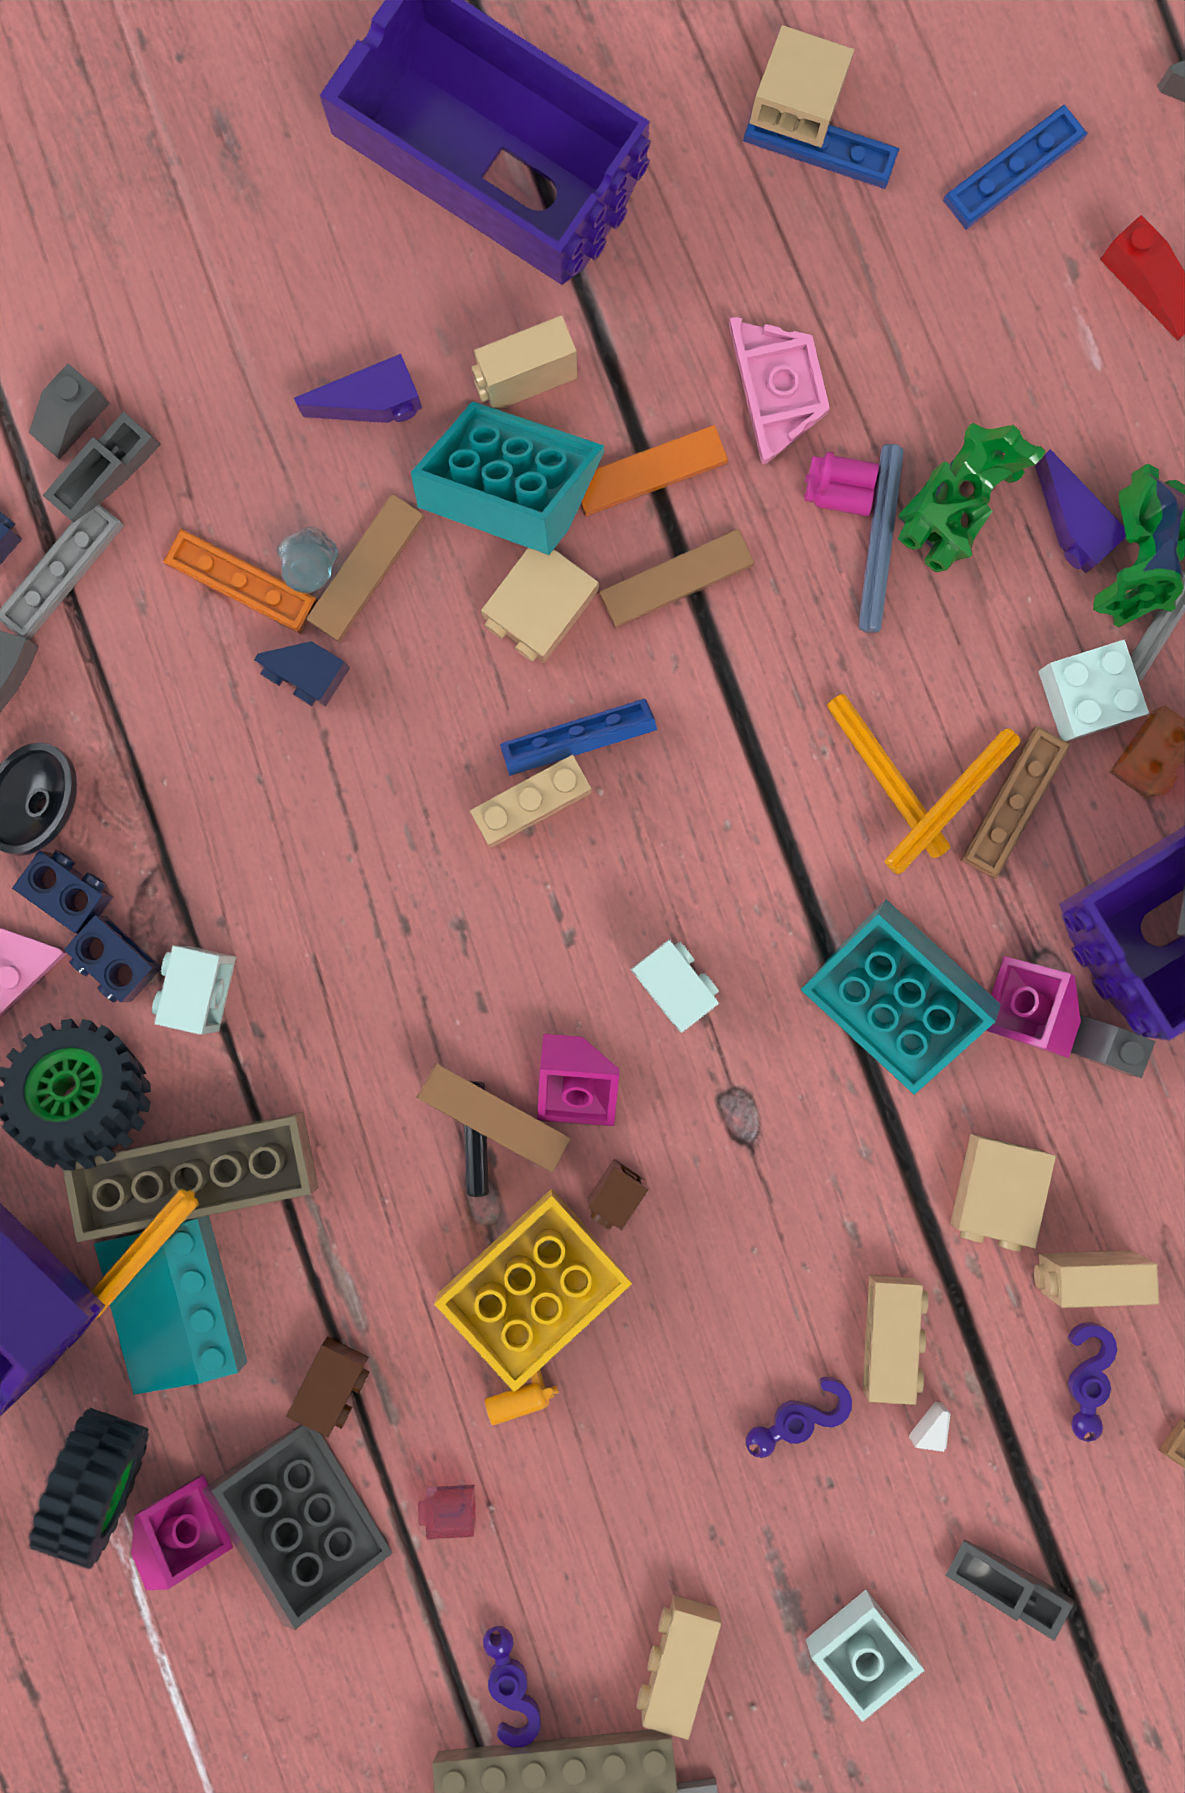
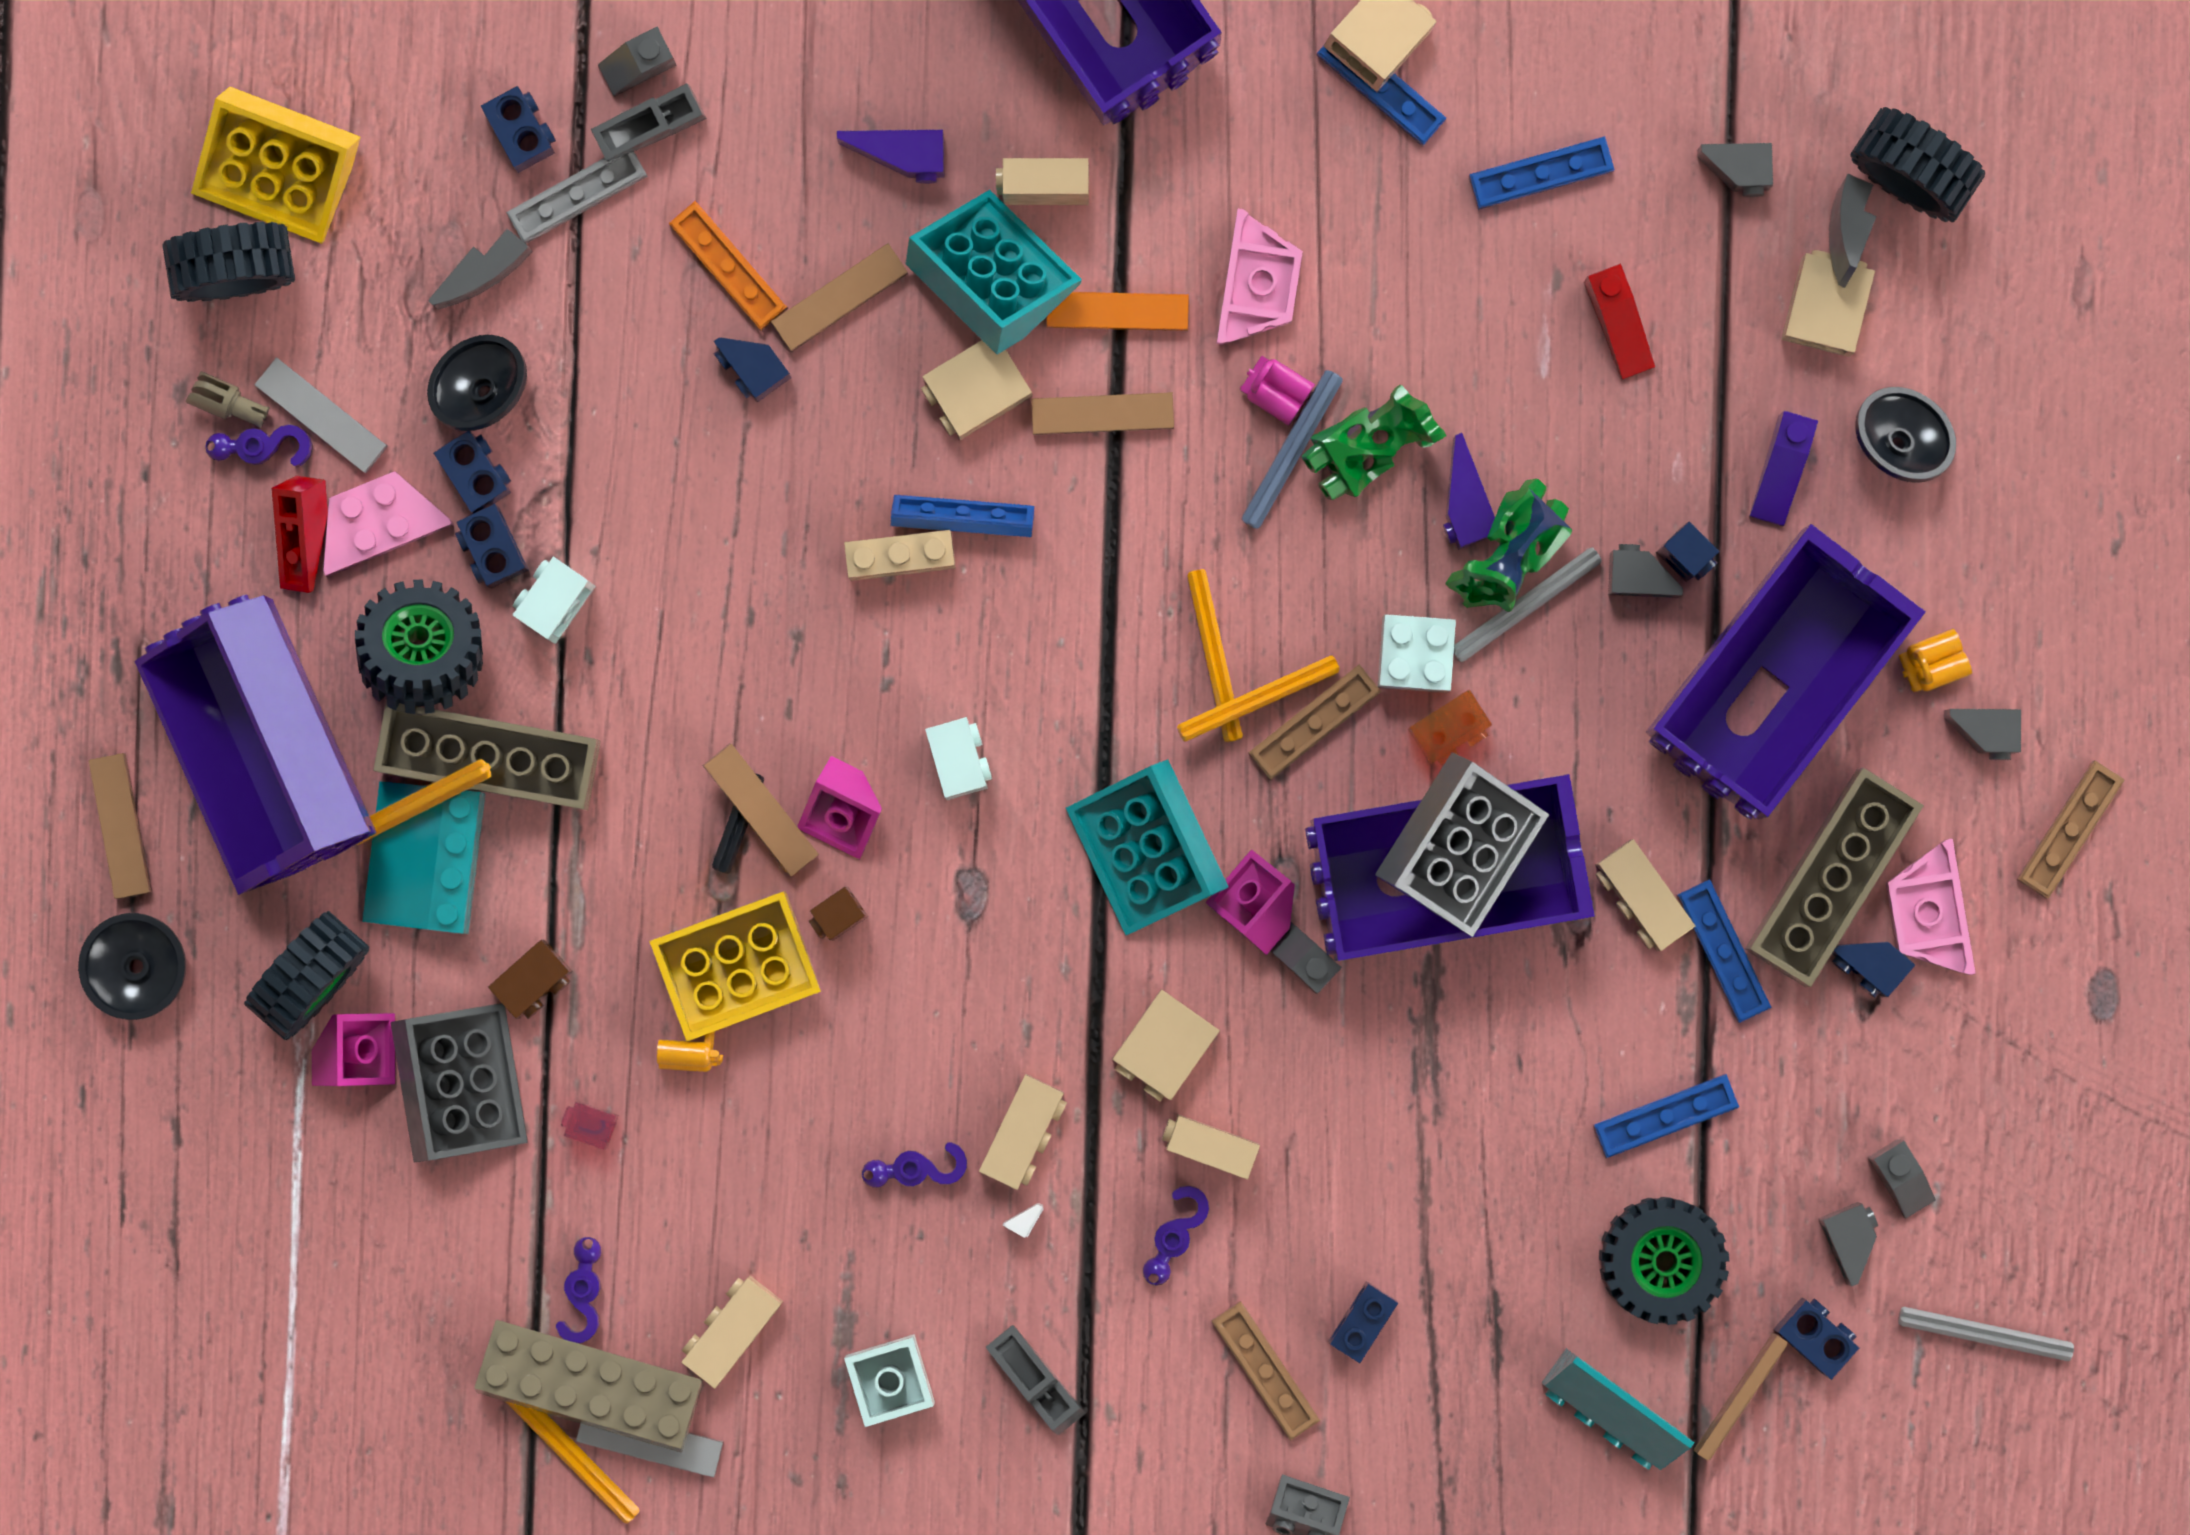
camera: 25 degrees right, 0 degrees up
(307, 559) = (793, 271): clear light blue head -> none

